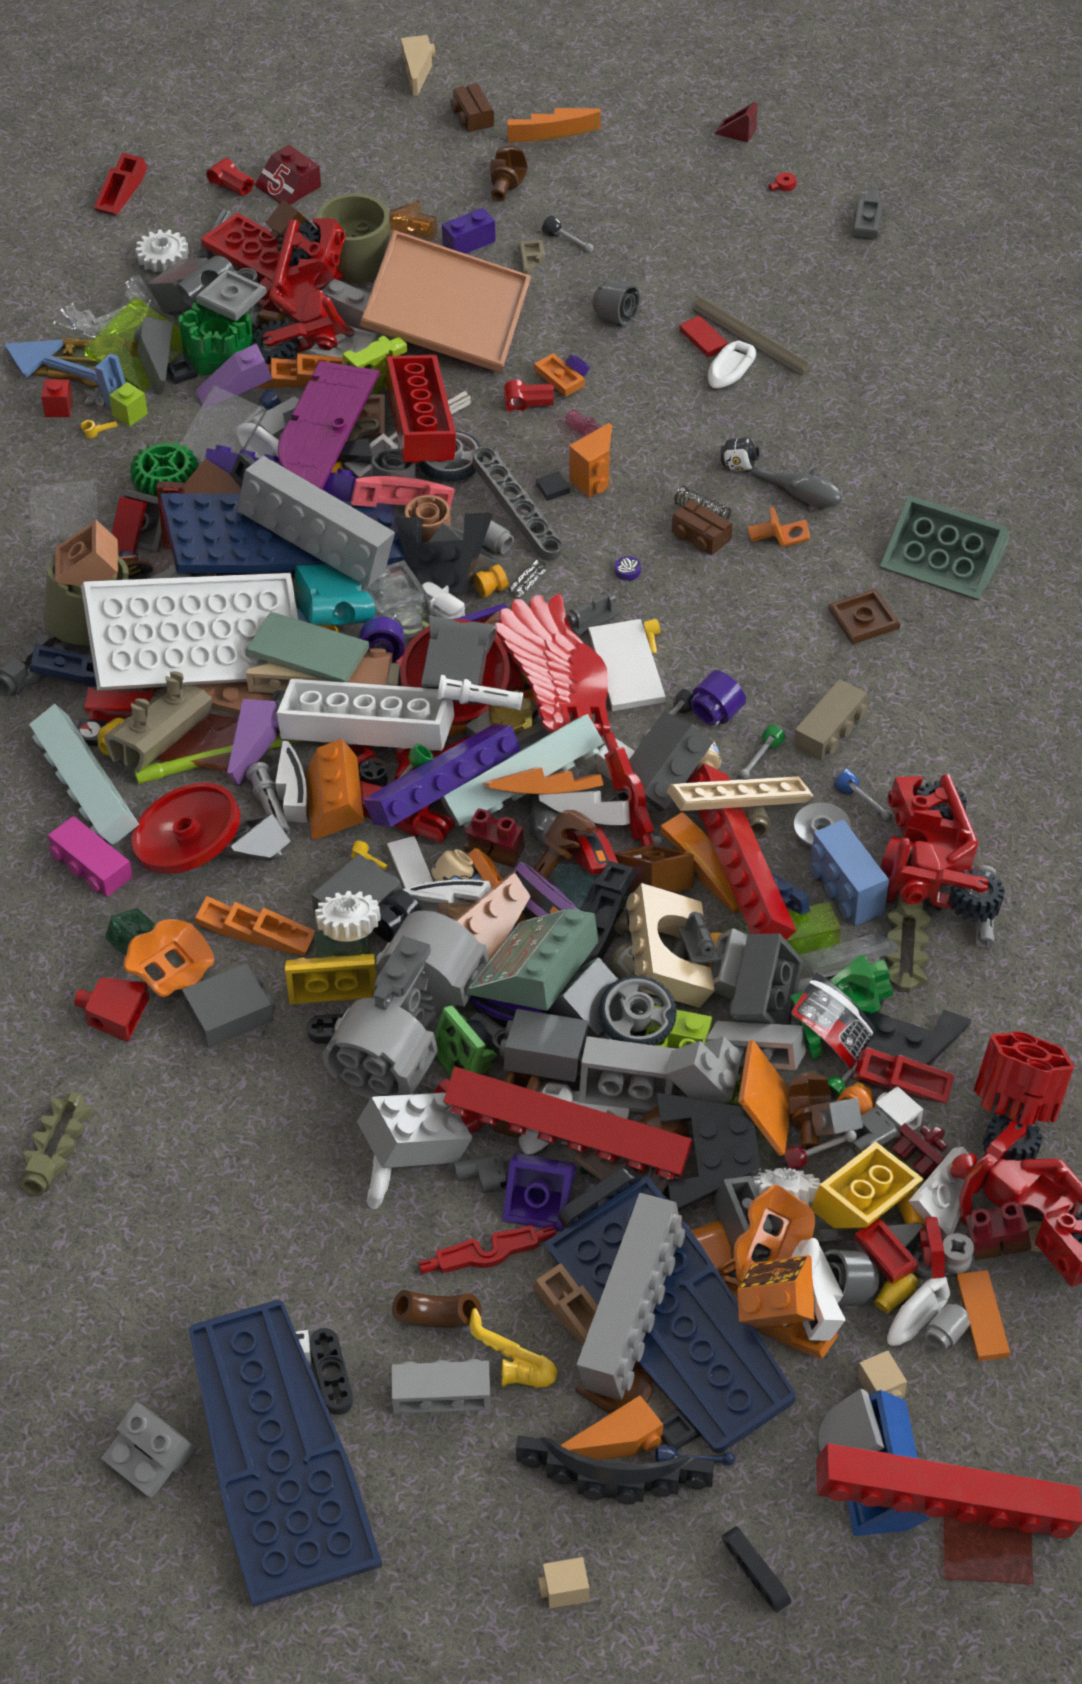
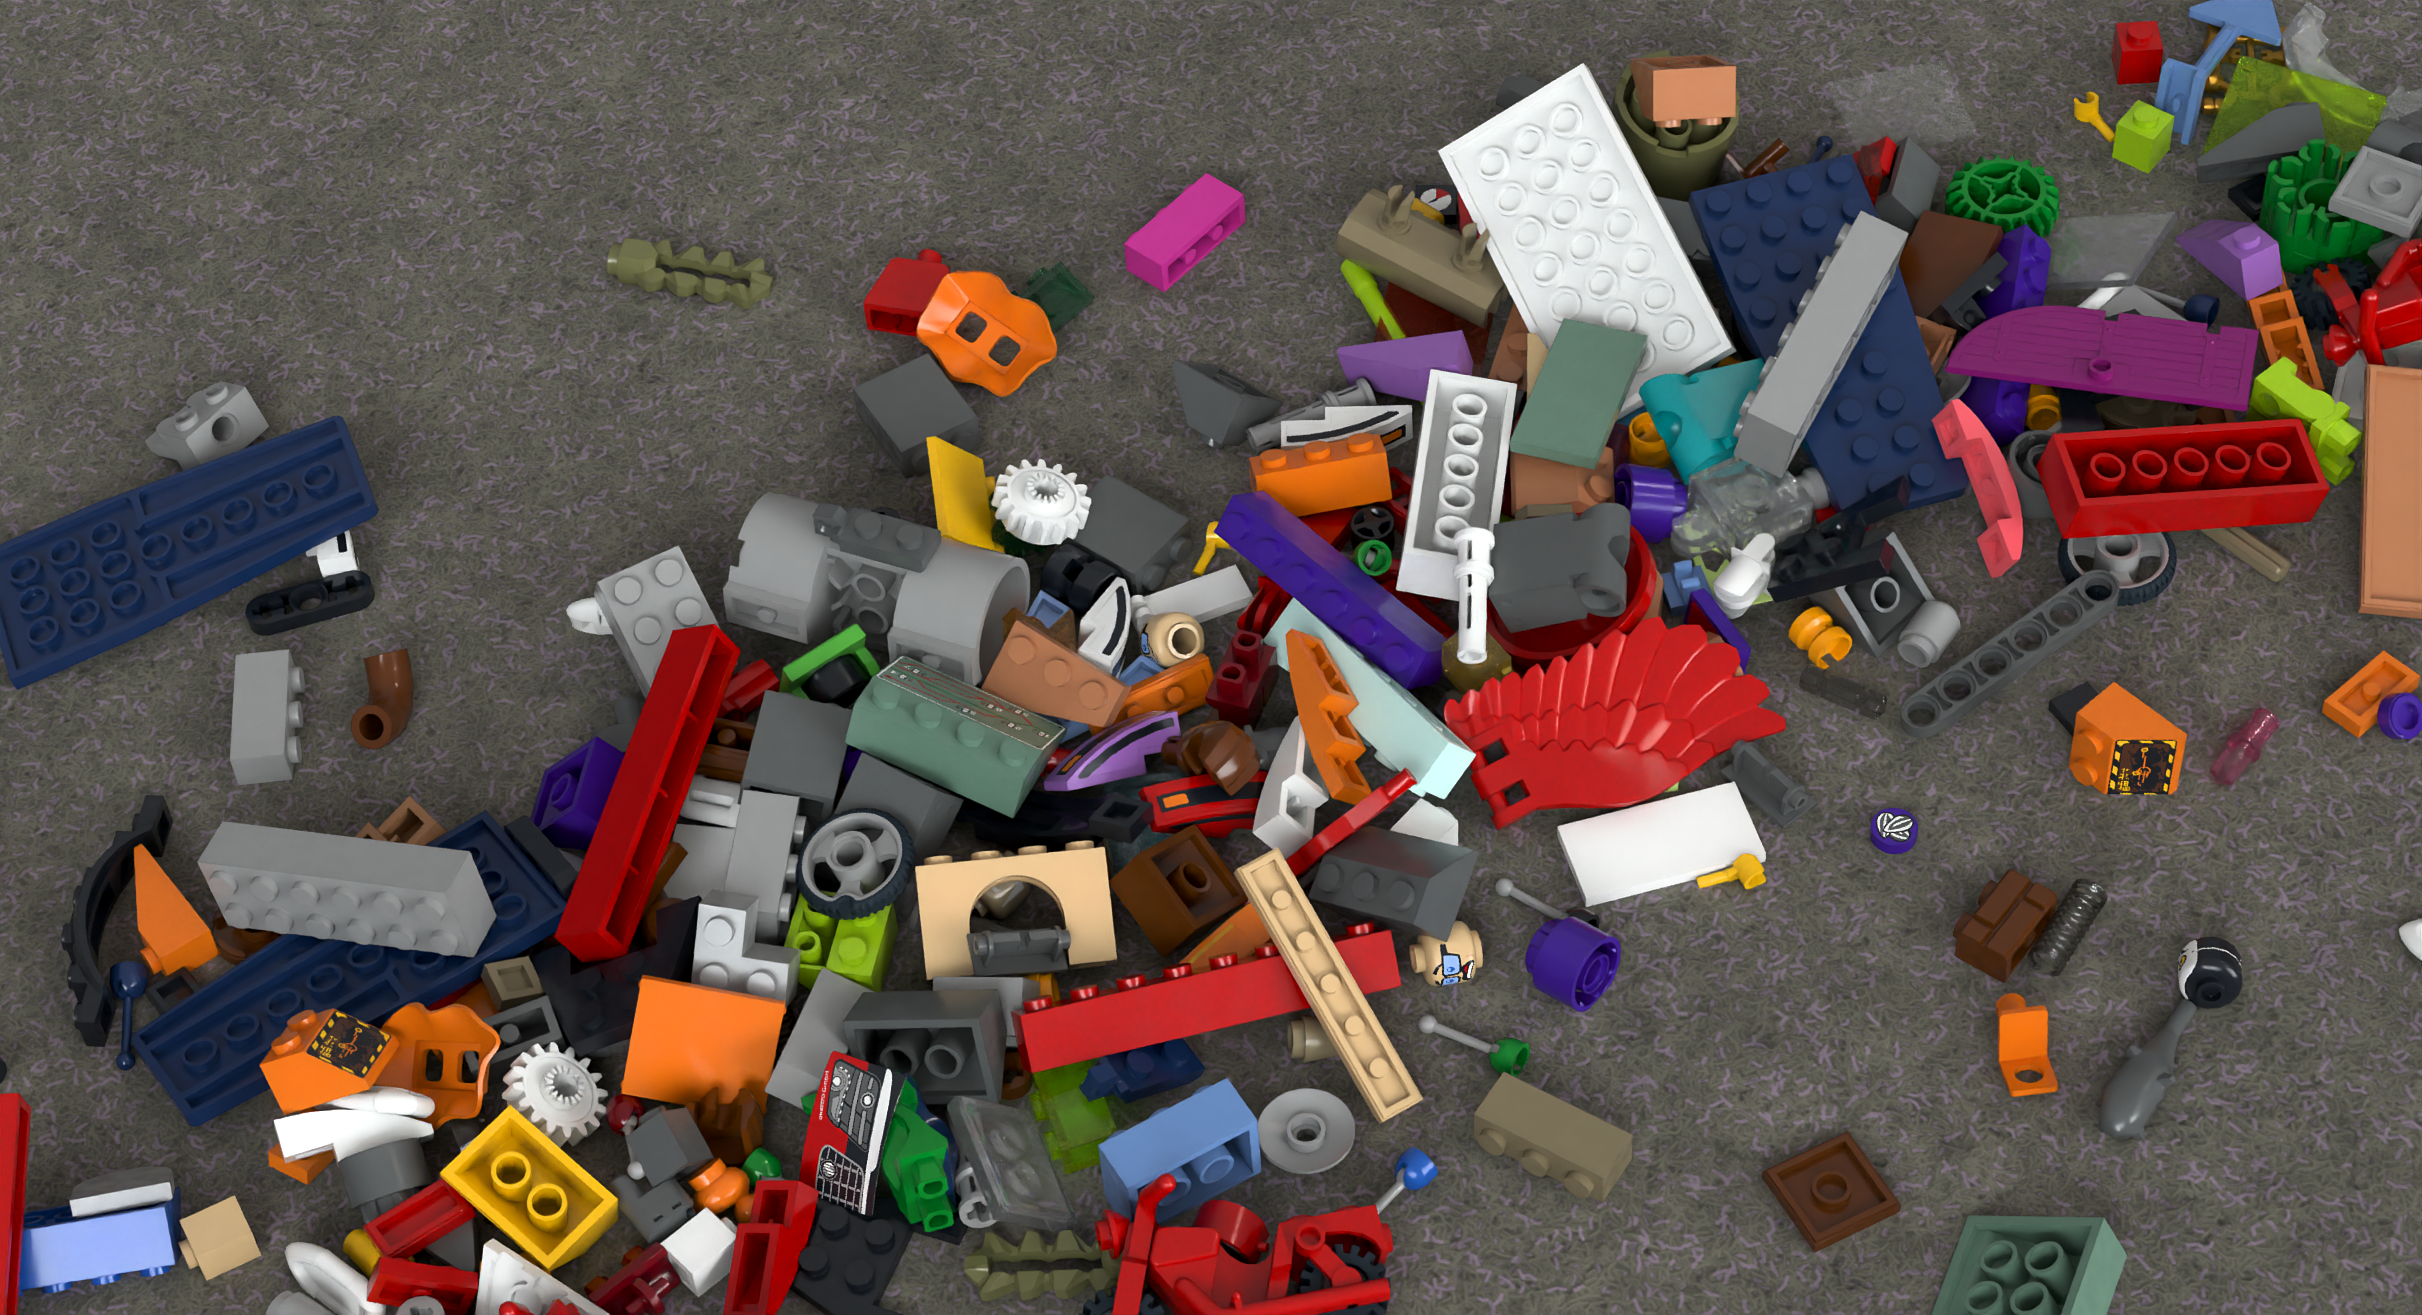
camera: 90 degrees right, 0 degrees up
(83, 774) = (1324, 202): light aqua brick -> none
(186, 828) = (1234, 321): red dish -> none
(261, 928) = (1072, 415): orange slope -> none
(432, 510) = (1937, 532): nougat piece -> none
(470, 1252) = (486, 737): red piece -> none
(519, 395) = (2299, 646): red piece -> none
(527, 1366) = (294, 801): yellow piece -> none
(699, 1214) = (512, 982): none -> dark tan tile

